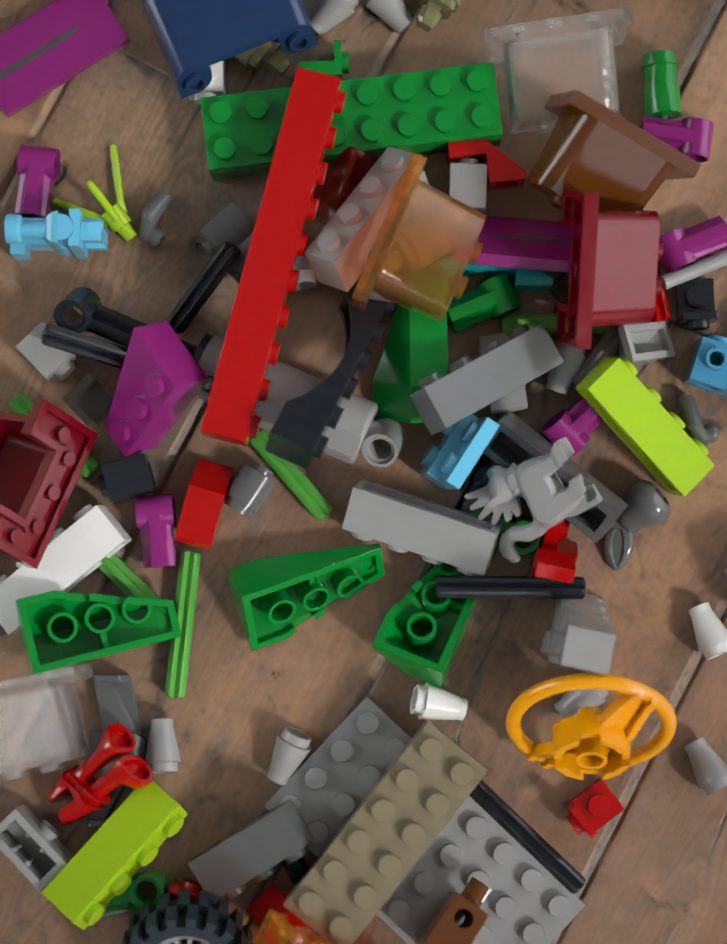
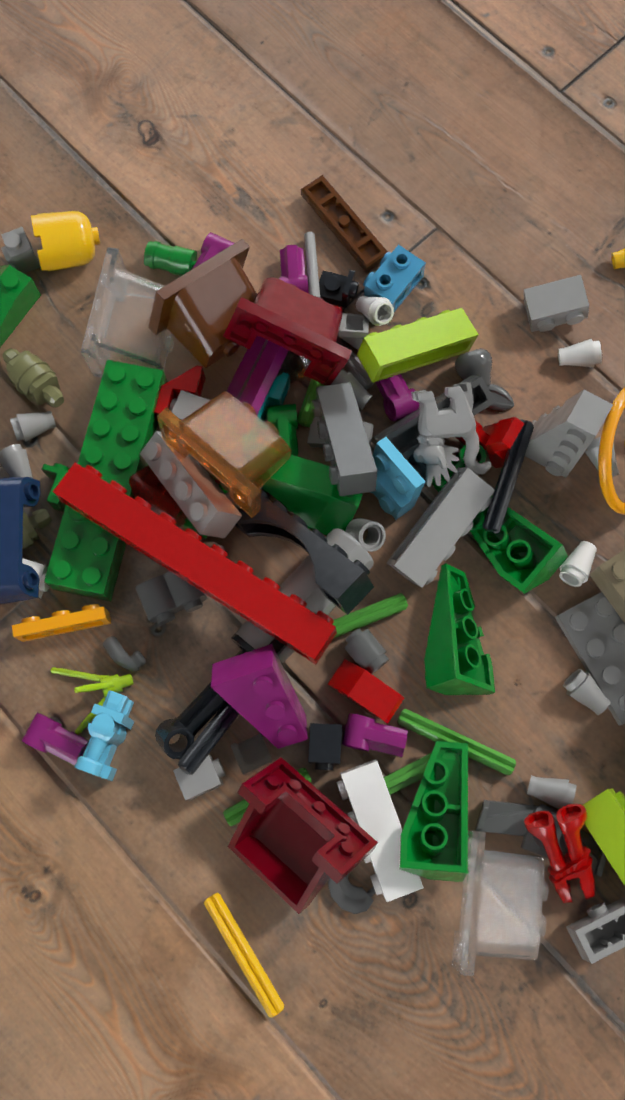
camera: 70 degrees left, 10 degrees down
(167, 135) = (61, 622): none -> light orange plate
(203, 286) = (192, 630): black axle -> none
(677, 360) = (375, 309): none -> white cone
(691, 417) = (411, 316): dark grey arm -> none

